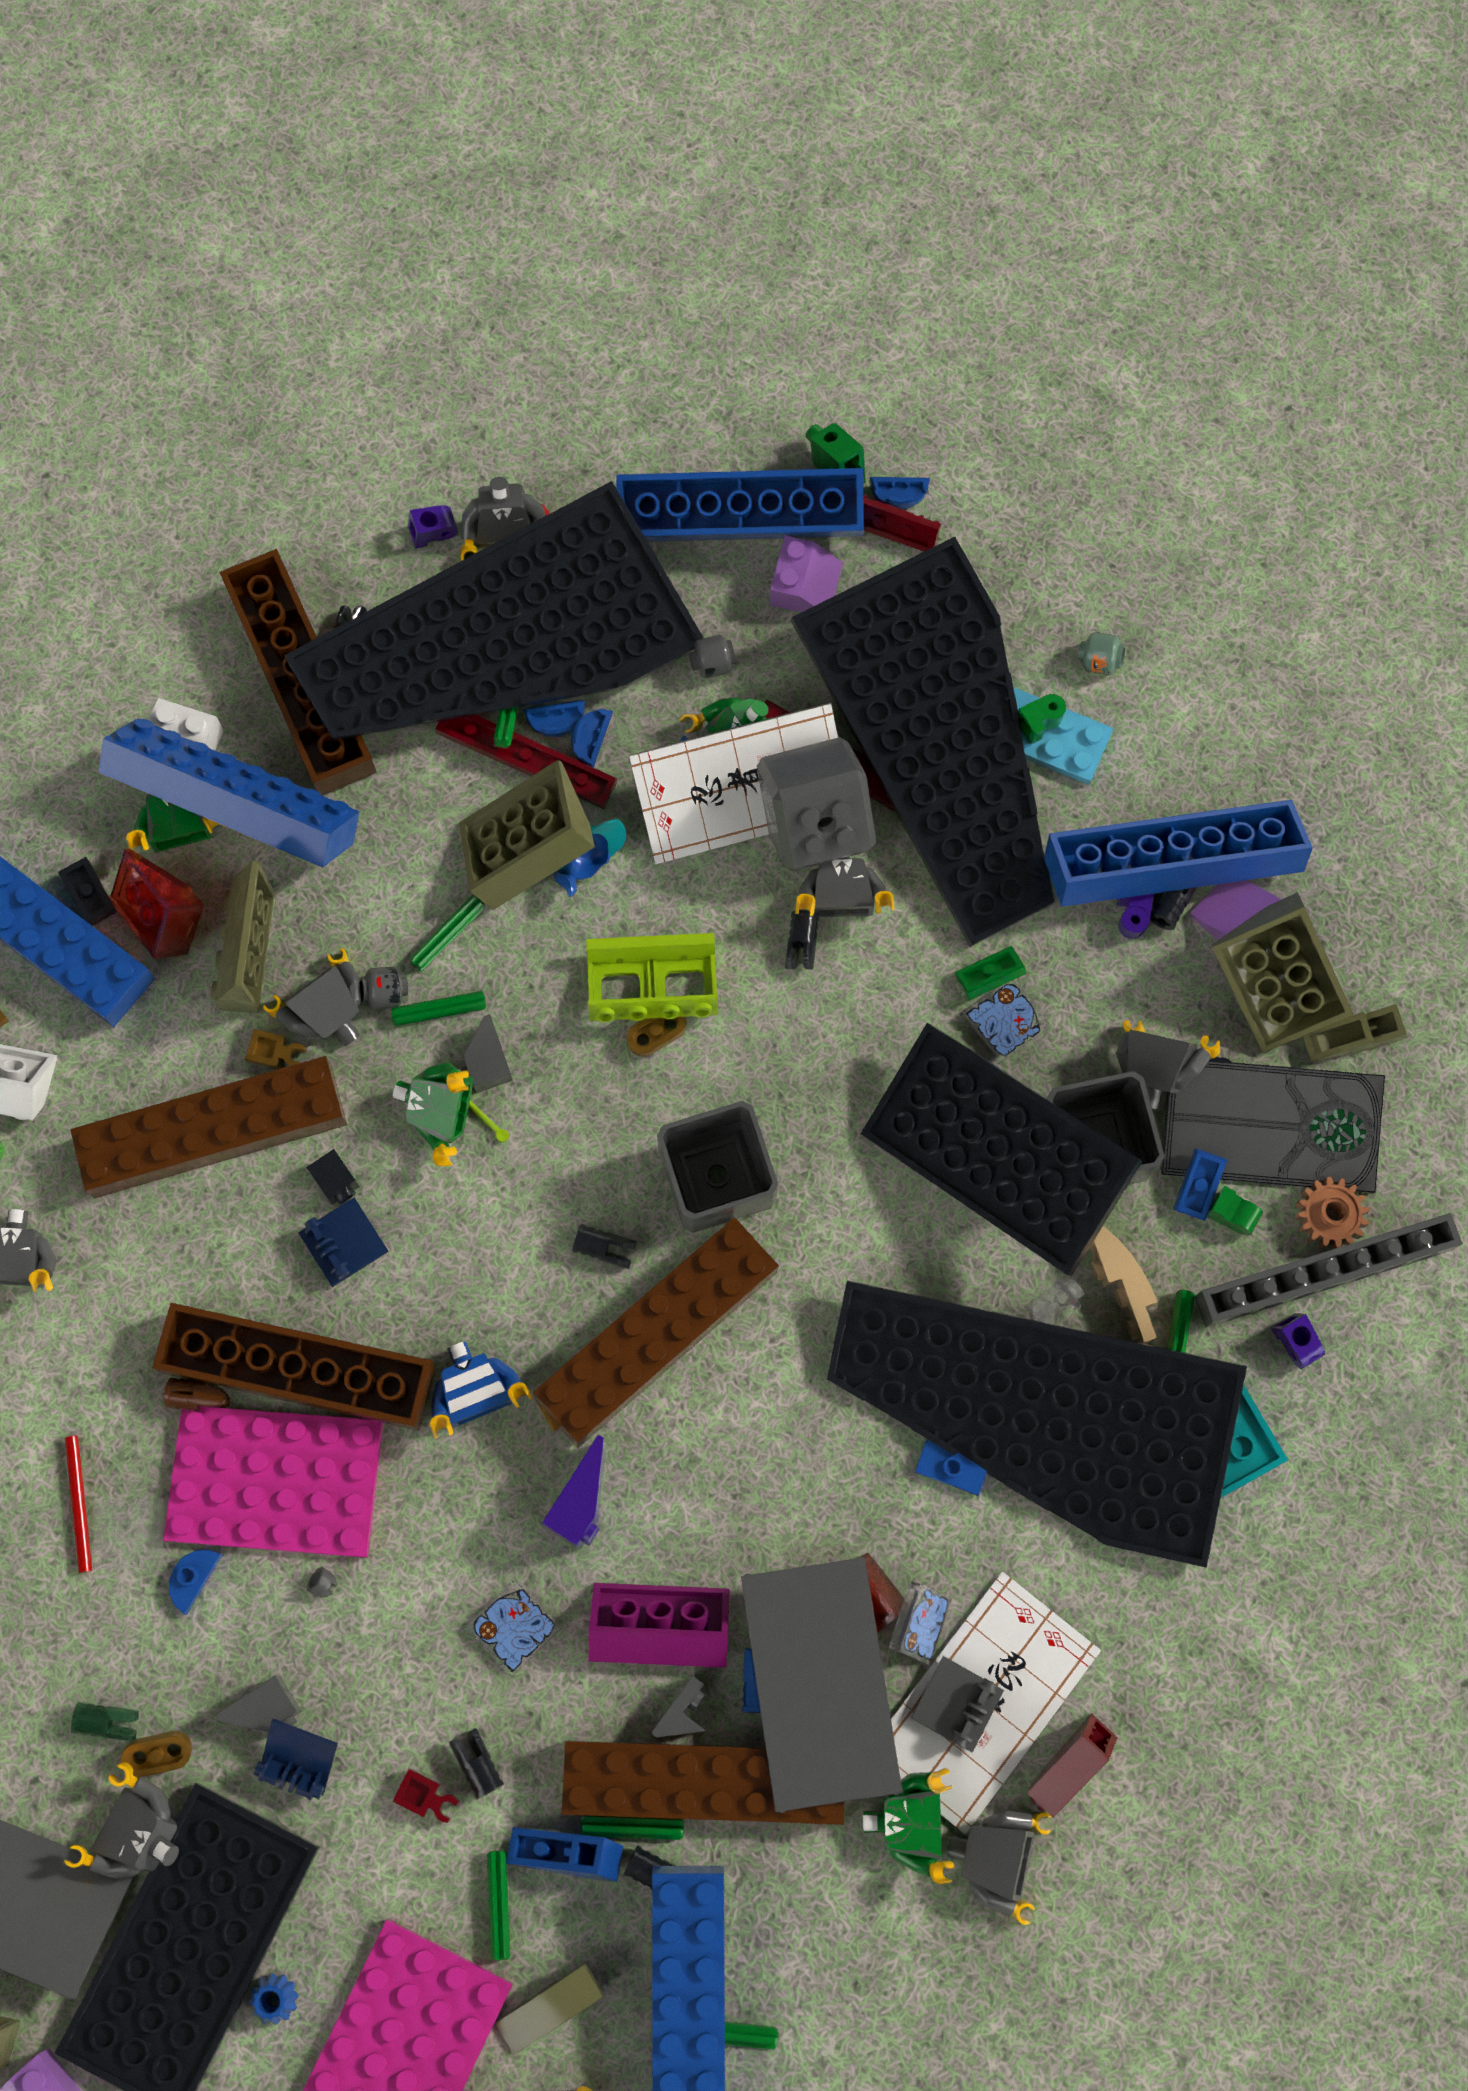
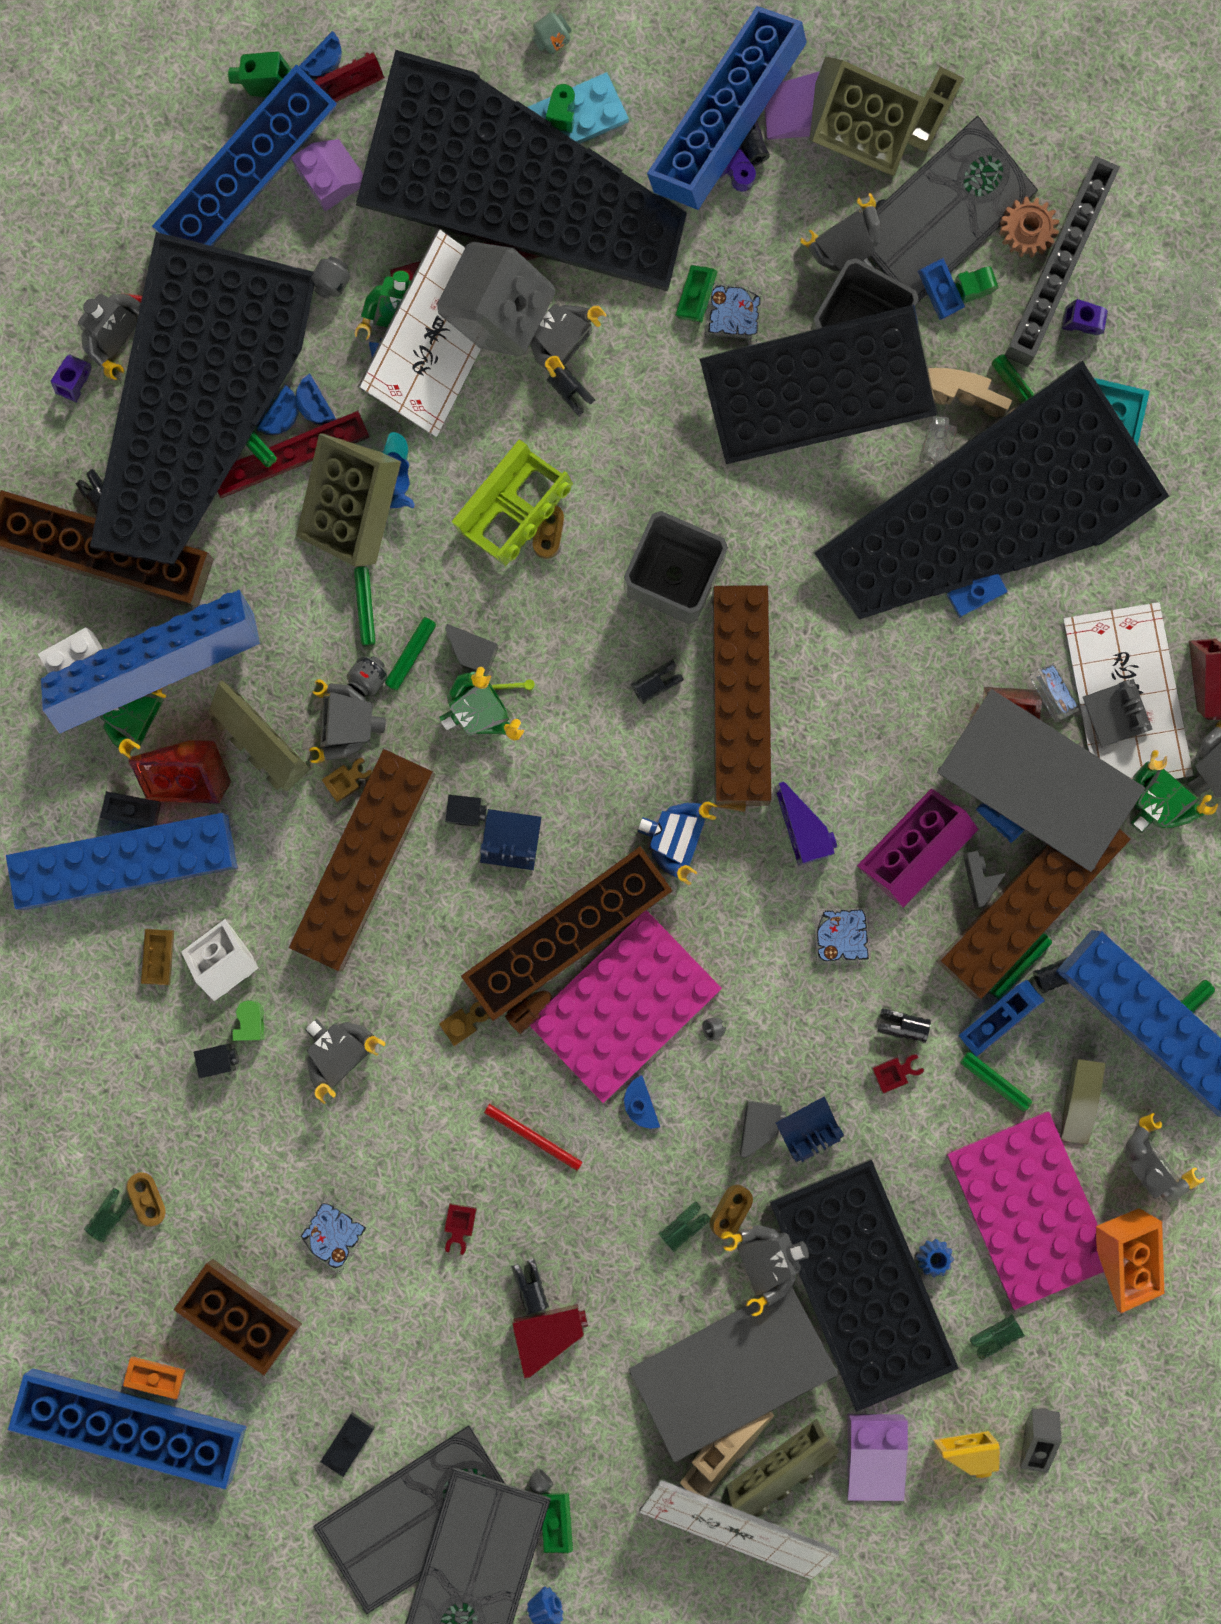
camera: 45 degrees left, 10 degrees up
(130, 1346) = (460, 1024): none -> pearl gold plate

